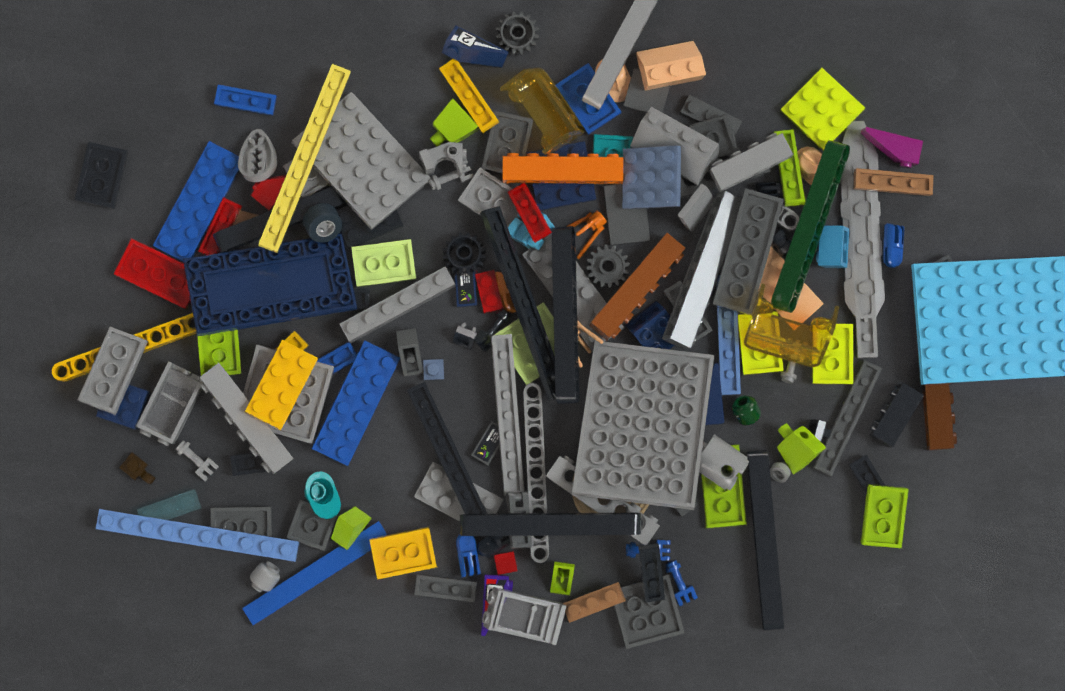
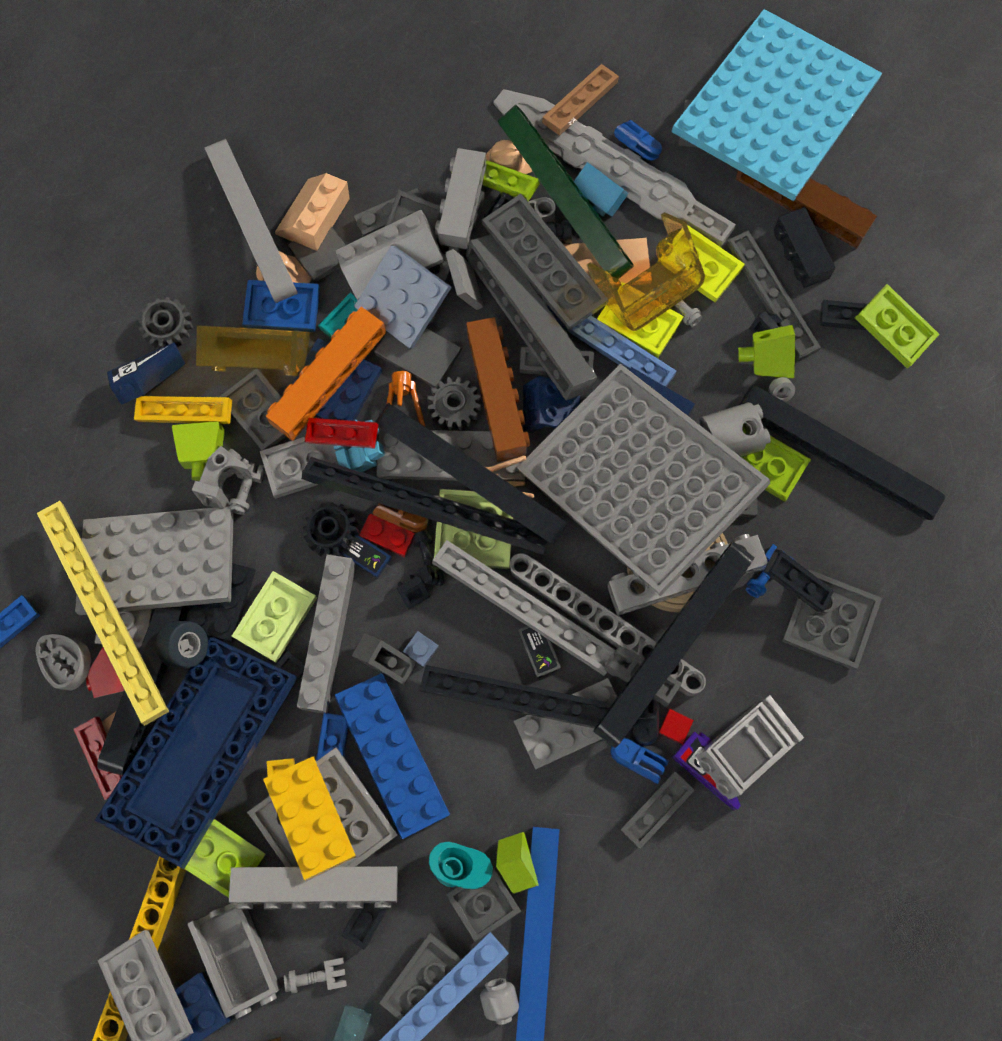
camera: 45 degrees left, 10 degrees down
(154, 273) = (87, 865): red plate -> none
(198, 202) = (57, 760): blue plate -> none
(403, 553) = (586, 827): yellow plate -> none
(562, 578) = (734, 678): lime slope -> none
(594, 602) = (784, 664): medium nougat plate -> none
(673, 567) = (834, 568): blue hinge -> none
(746, 410) = (697, 376): dark green head -> none
(822, 109) = (464, 114): neon yellow plate -> none
(896, 147) = (548, 76): magenta slope -> none

